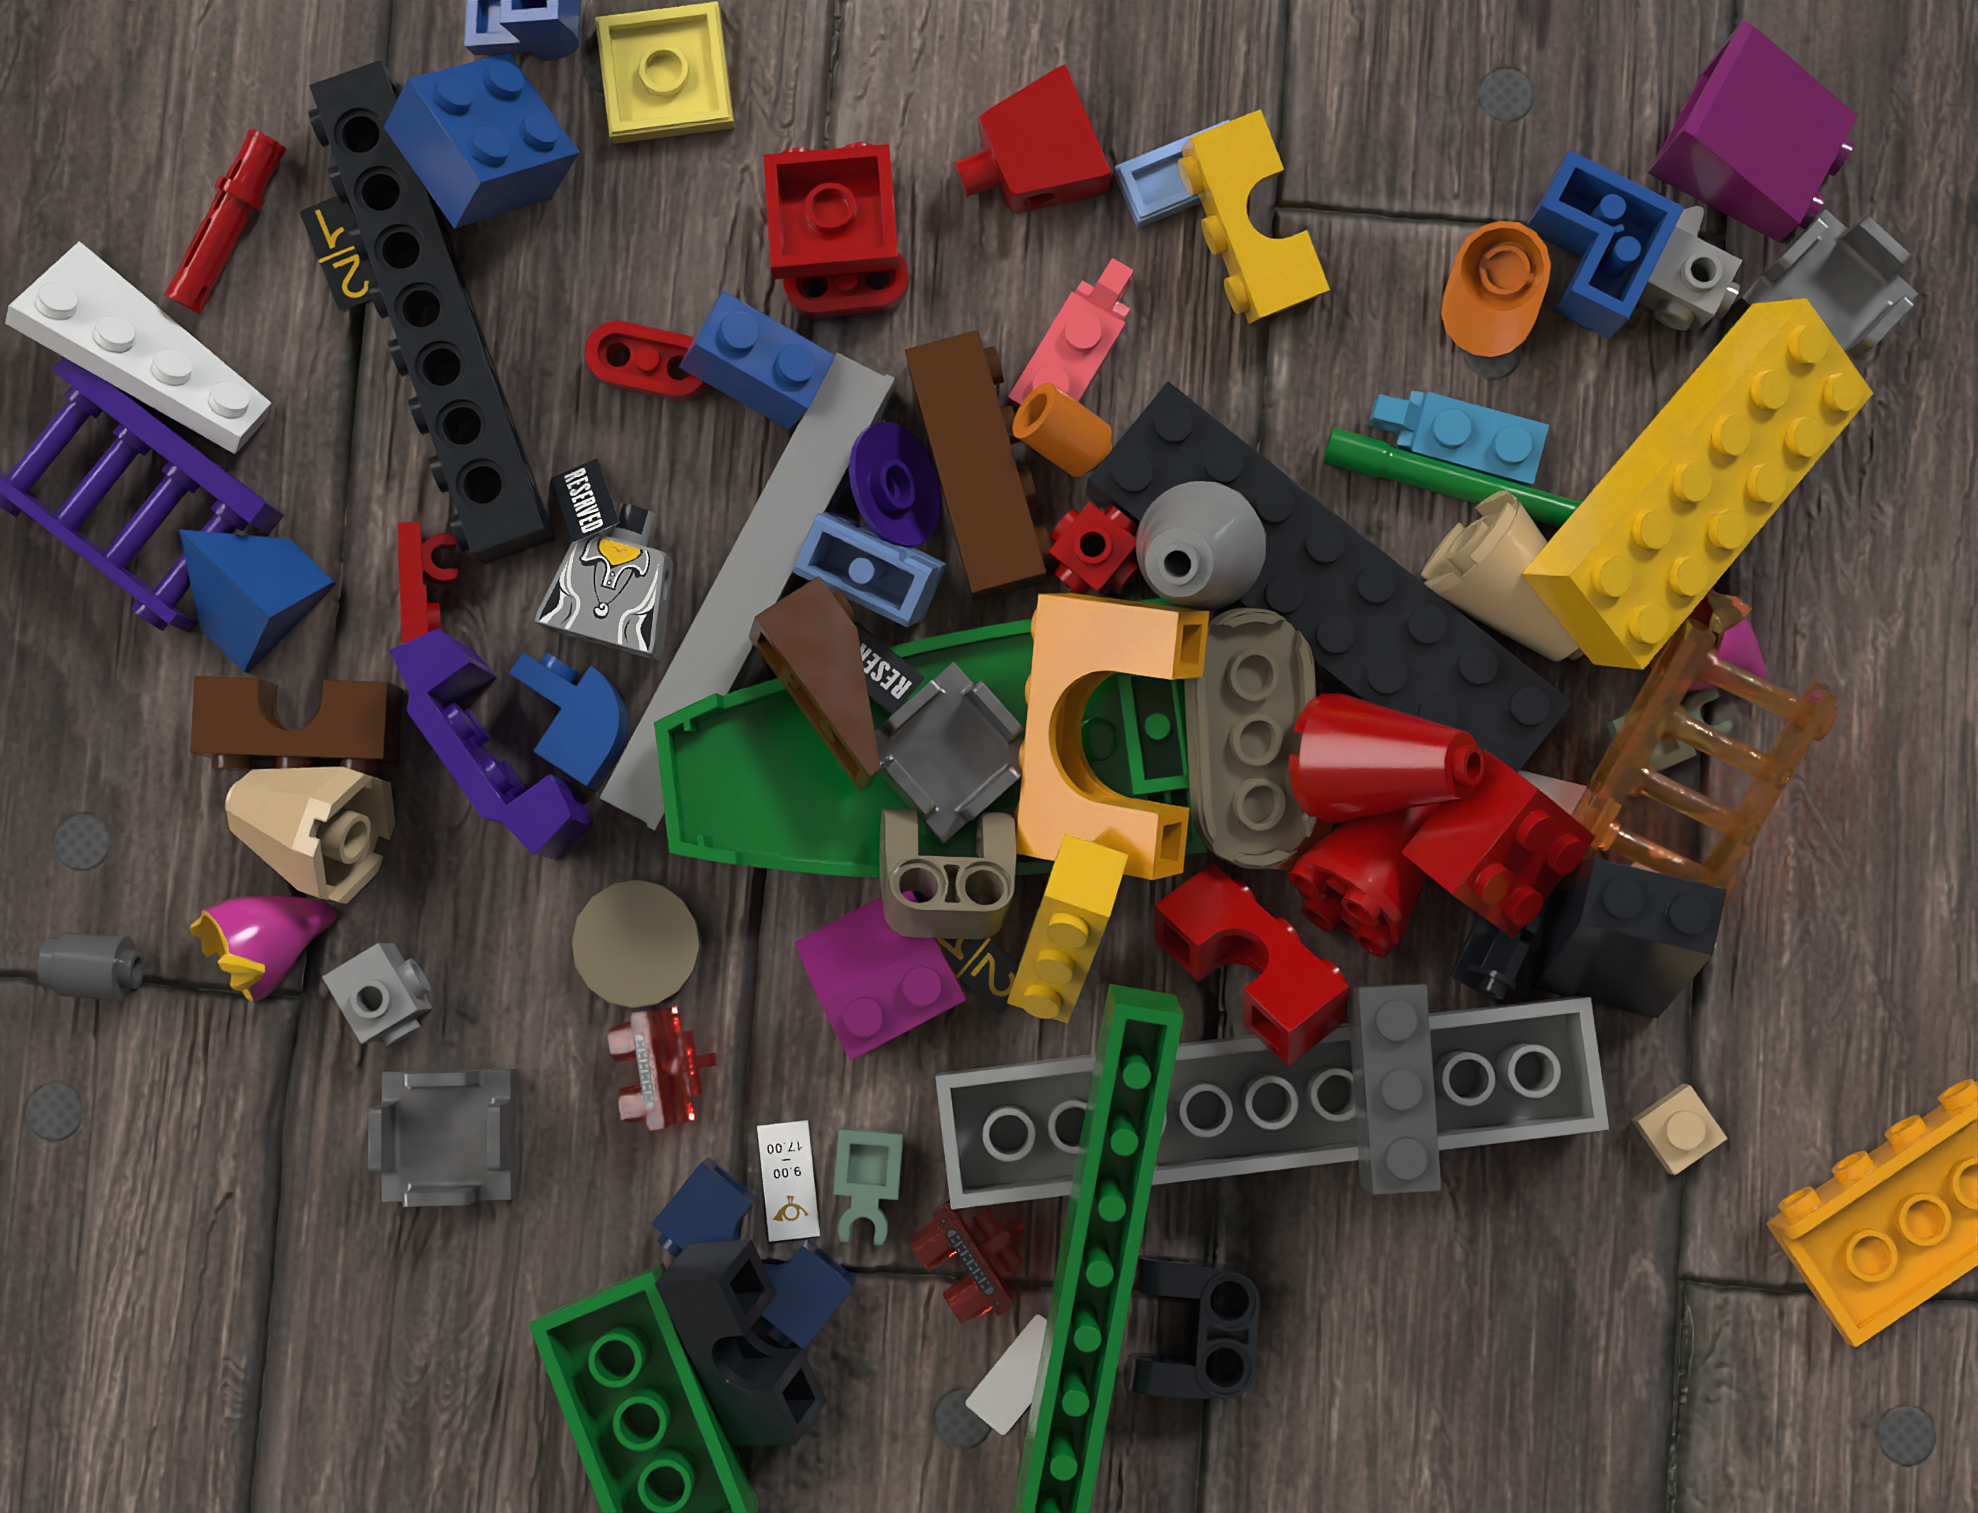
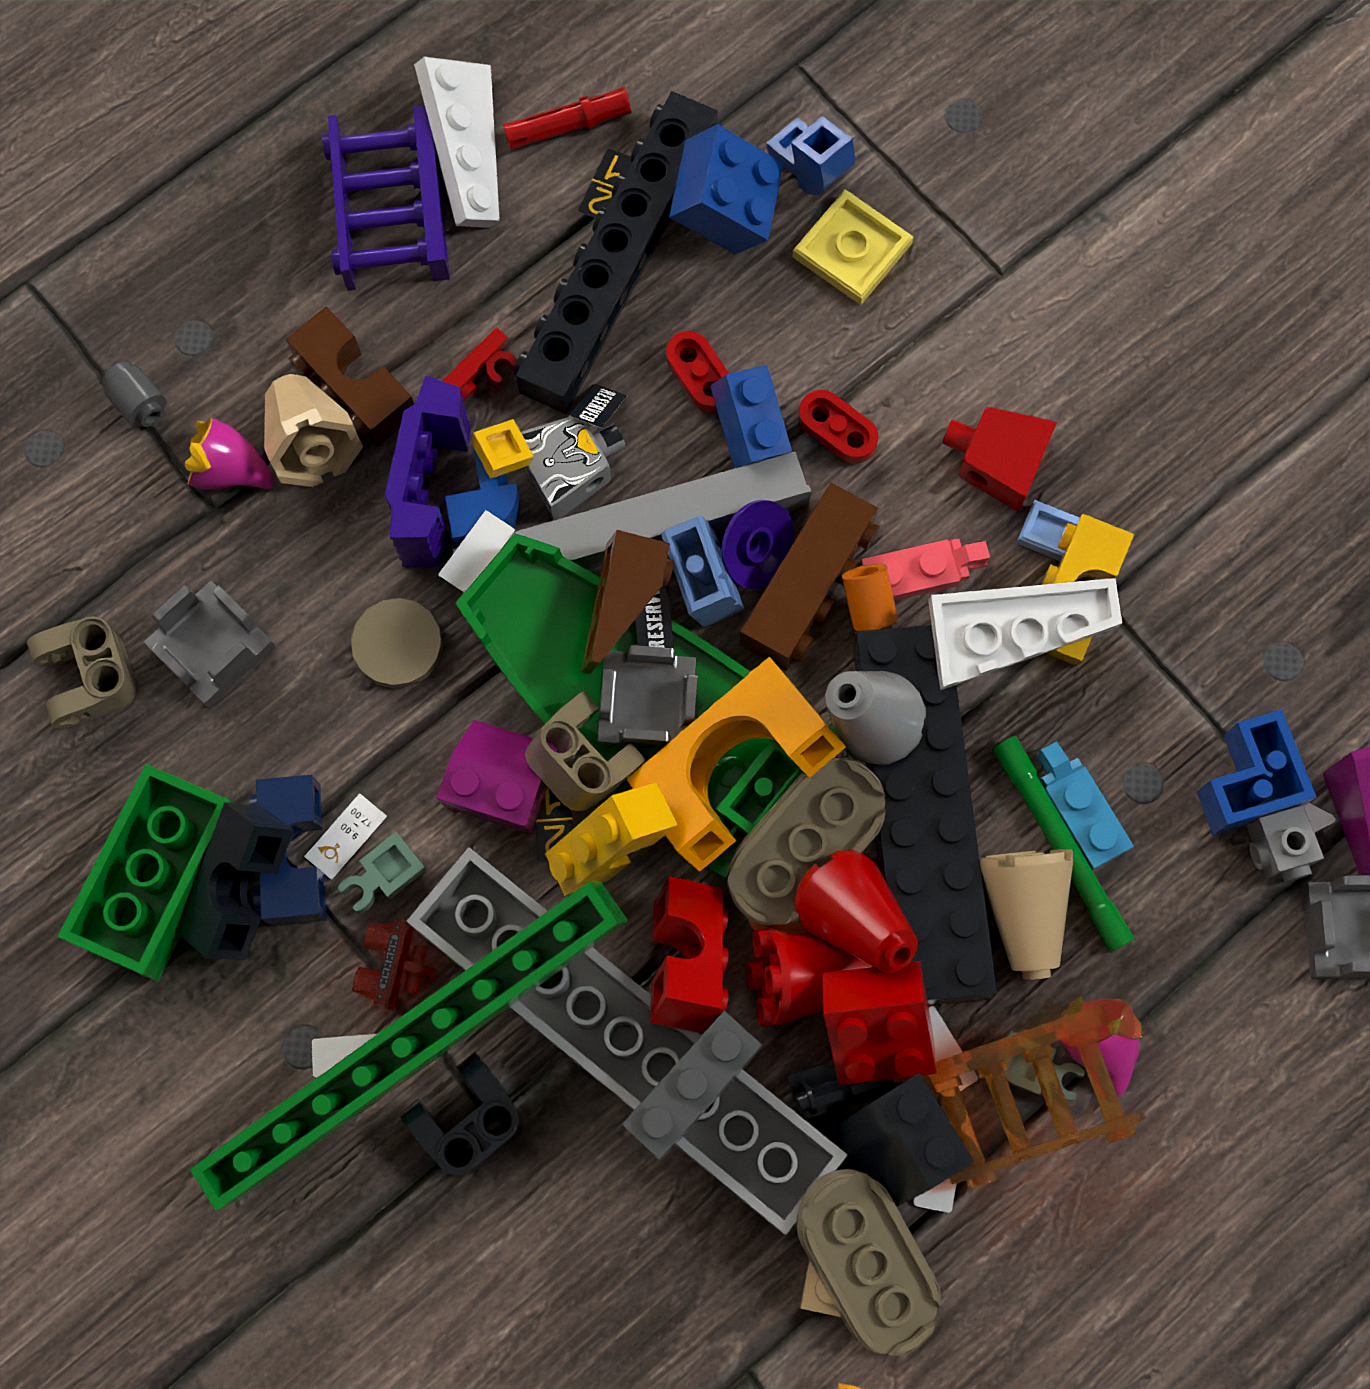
camera: 45 degrees right, 10 degrees down
(250, 590) = (396, 296): blue slope -> none
(359, 1280) = (95, 666): none -> dark tan piece
(380, 994) = (250, 541): light grey brick -> none
(542, 646) = (501, 448): none -> yellow plate
(626, 775) = (476, 551): none -> white sticker
(665, 1066) = (344, 714): clear red hips -> none
(830, 211) = (864, 383): red plate -> none
(1099, 574) = (818, 667): red brick -> none
(1230, 331) = (1009, 625): none -> white wing
(1496, 288) = (1174, 748): orange cap -> none
(1698, 484) = (1181, 946): yellow brick -> none
(1699, 1072) = (868, 1262): none -> dark tan tile

